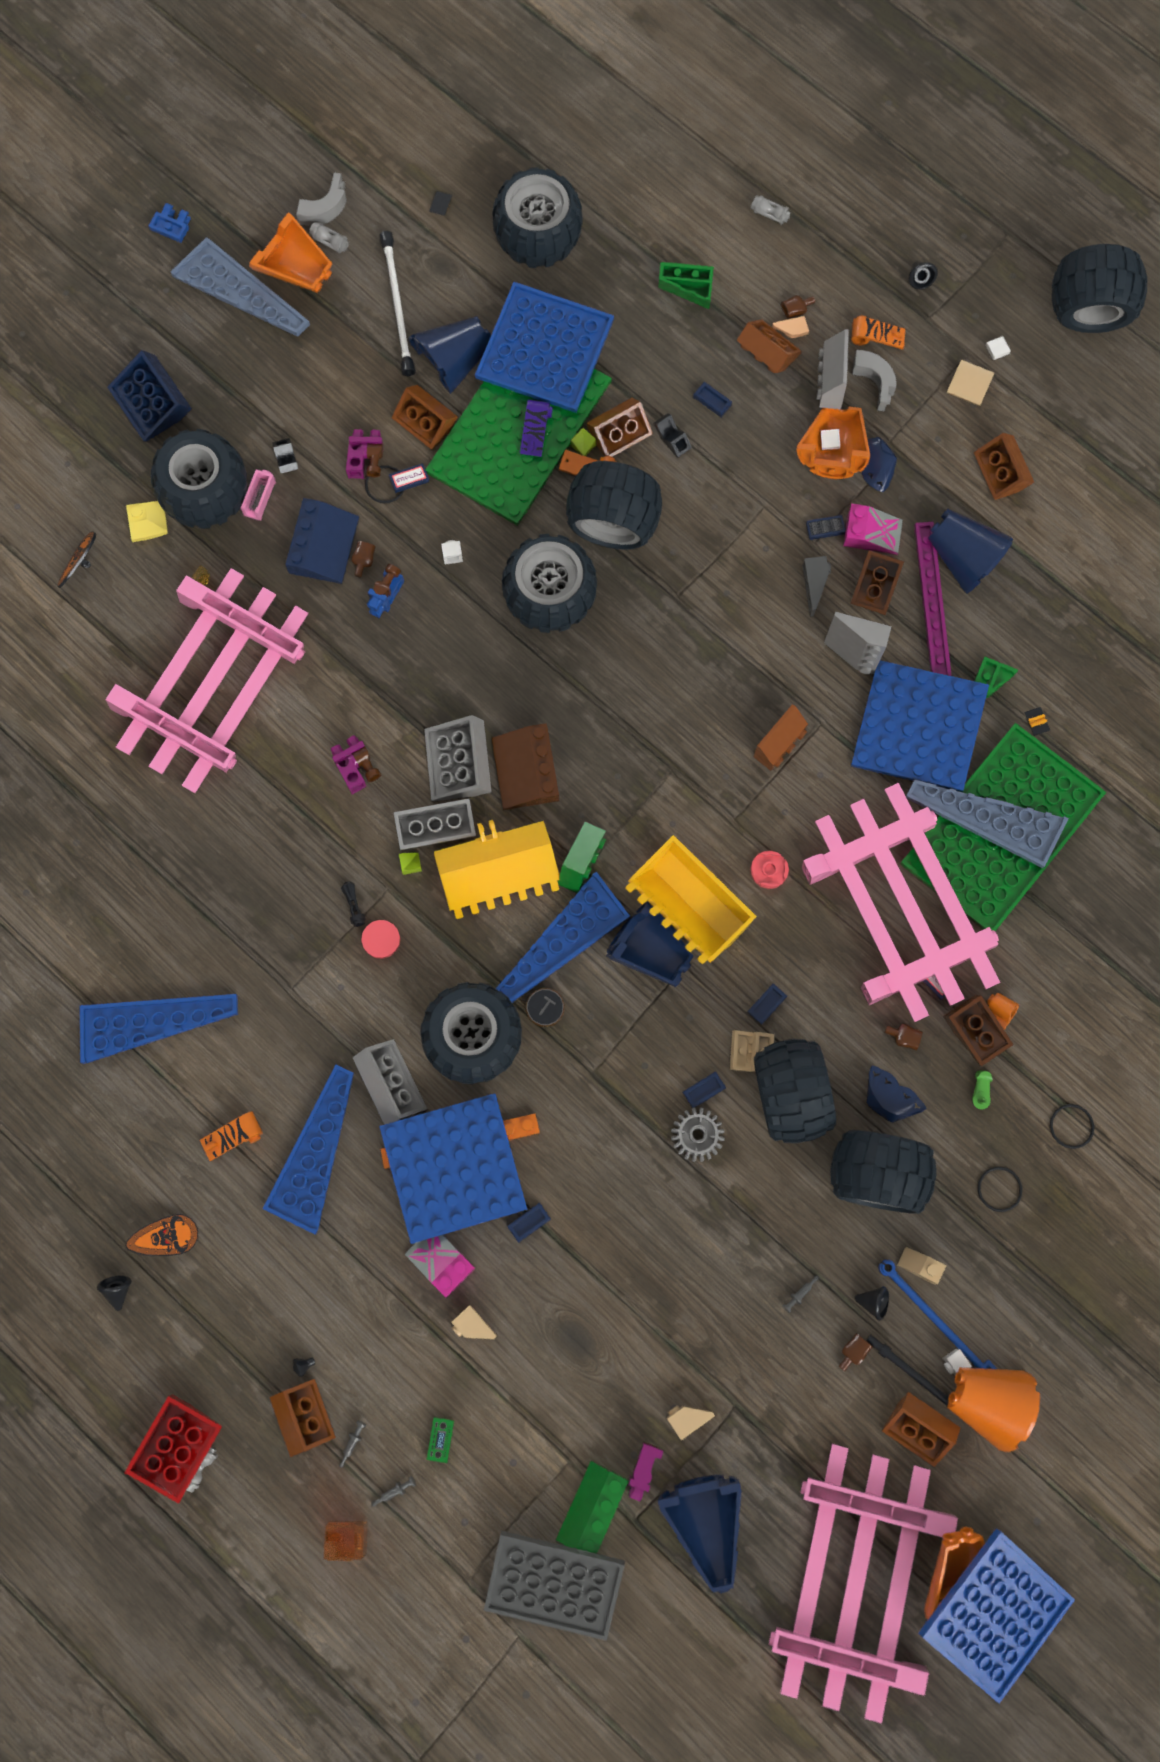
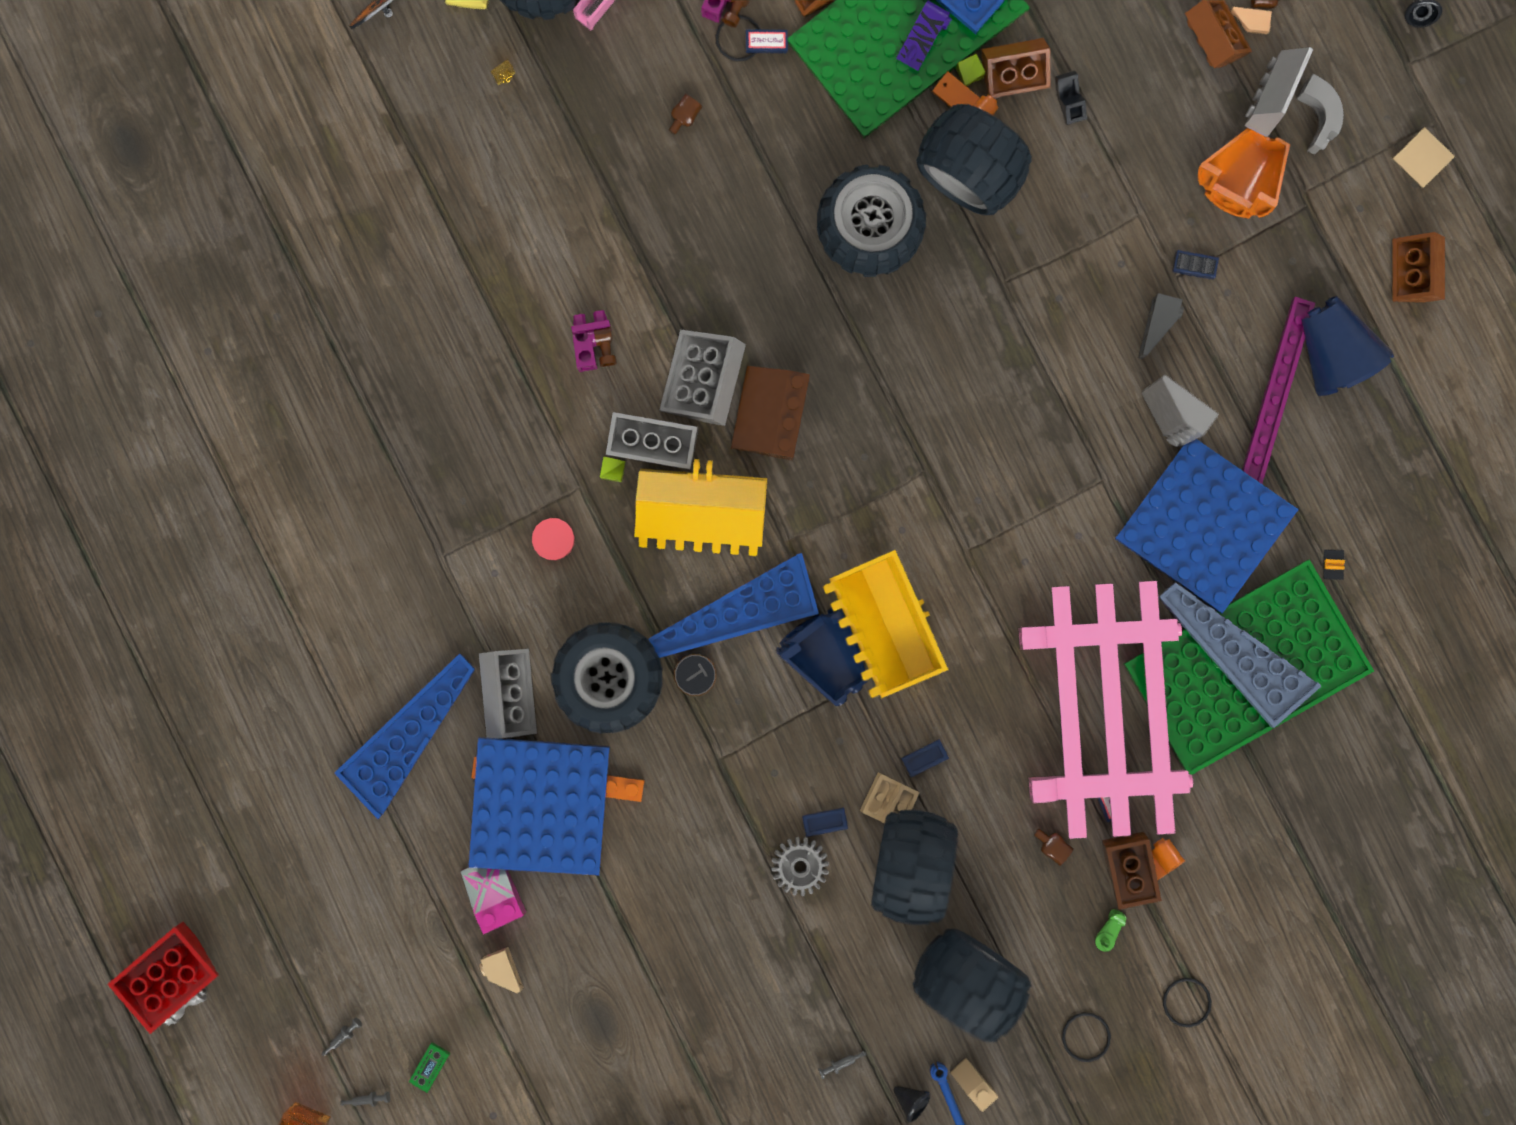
camera: 20 degrees right, 10 degrees up
(115, 1290) = (160, 797): black hat -> none
(127, 1025) = (264, 532): blue wing -> none
(164, 1237) = (227, 764): shield -> none
(180, 731) = (533, 146): bright pink fence -> none
(231, 1135) = (329, 686): orange door -> none
(301, 1366) = (318, 943): black rock -> none
(302, 1417) = (301, 994): dark orange slope -> none
(321, 541) = (647, 79): dark blue slope -> none
(349, 891) = (539, 474): black piece -> none
(385, 591) = (693, 162): blue hips -> none
(452, 552) = (781, 143): white plate -> none
(529, 1222) = (596, 888): dark blue tile -> none
(581, 856) = (792, 531): green wedge -> none
(712, 399) = (1131, 71): dark blue tile -> none
(769, 869) = (983, 618): coral tile -> none
(781, 738) = (1052, 484): dark orange slope -> none
(830, 439) = (1241, 167): white tile -> none
(868, 329) = (1338, 55): orange door -> none
(872, 530) = (1245, 287): dark pink slope -> none
(877, 582) = (1226, 348): reddish brown slope -> none
(880, 464) = (1286, 215): dark blue piece -> none
(889, 1099) = (1011, 904): dark blue piece -> none
(994, 674) = (1308, 497): green wing -> none
(998, 348) = (1471, 128): white tile -> none

